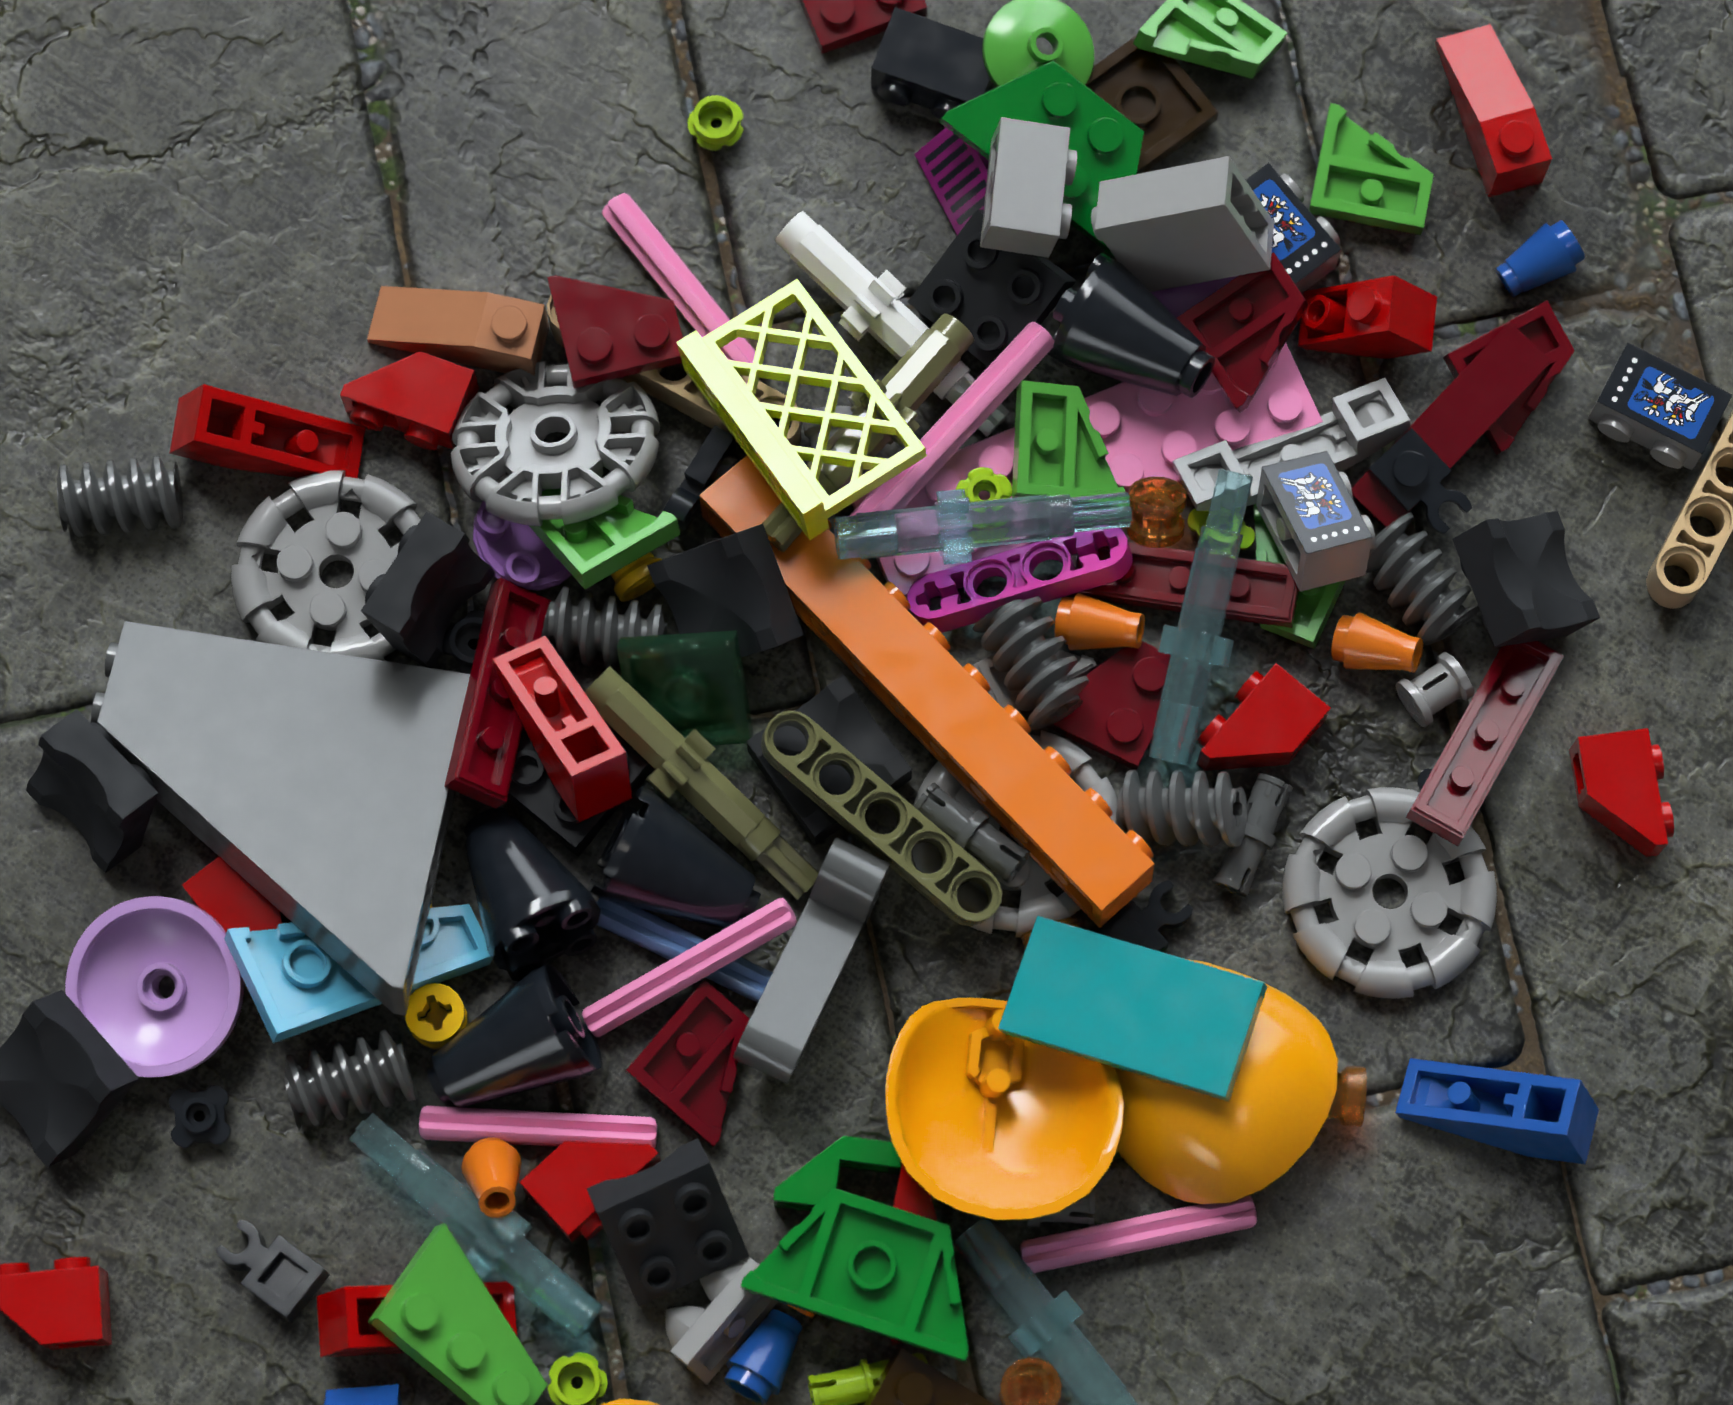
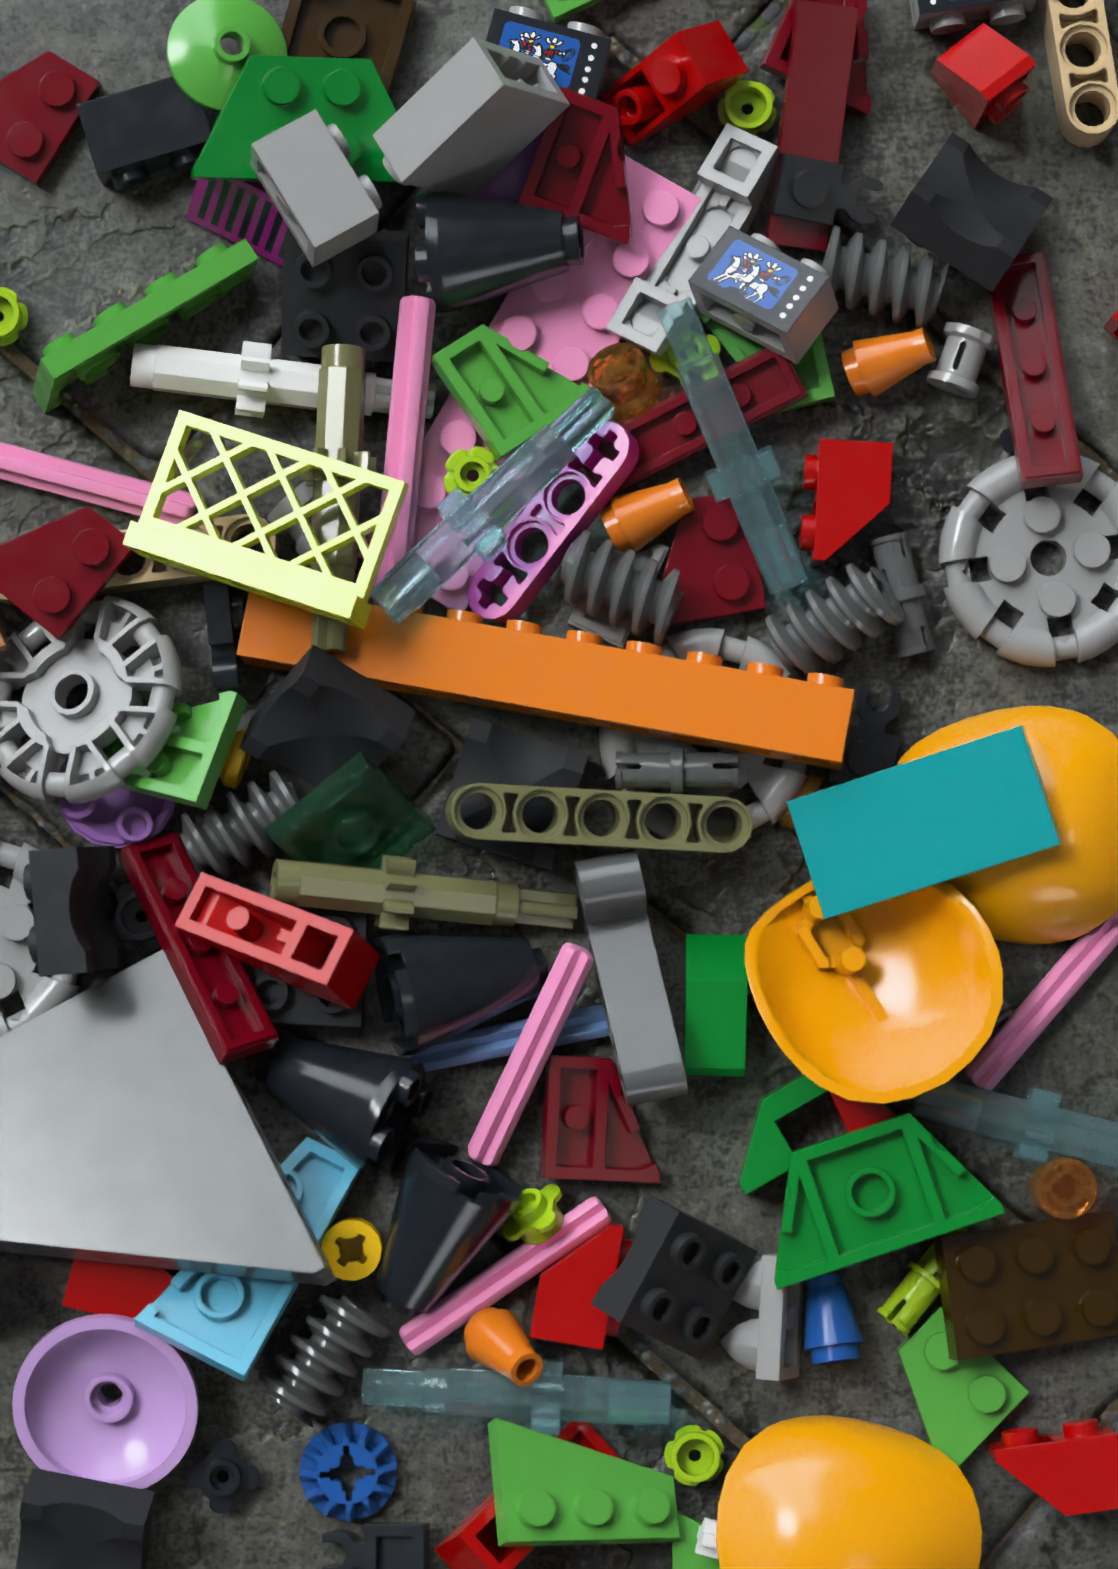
camera: 40 degrees left, 10 degrees up
(301, 1216) = (326, 1452): none -> blue gear
(597, 1097) = (536, 1217): none -> lime plate
(769, 195) = (94, 351): none -> bright green wing
(860, 1041) = (715, 1005): none -> green slope
(1421, 371) = (750, 93): none -> lime plate
(1613, 486) = (984, 76): none -> red slope

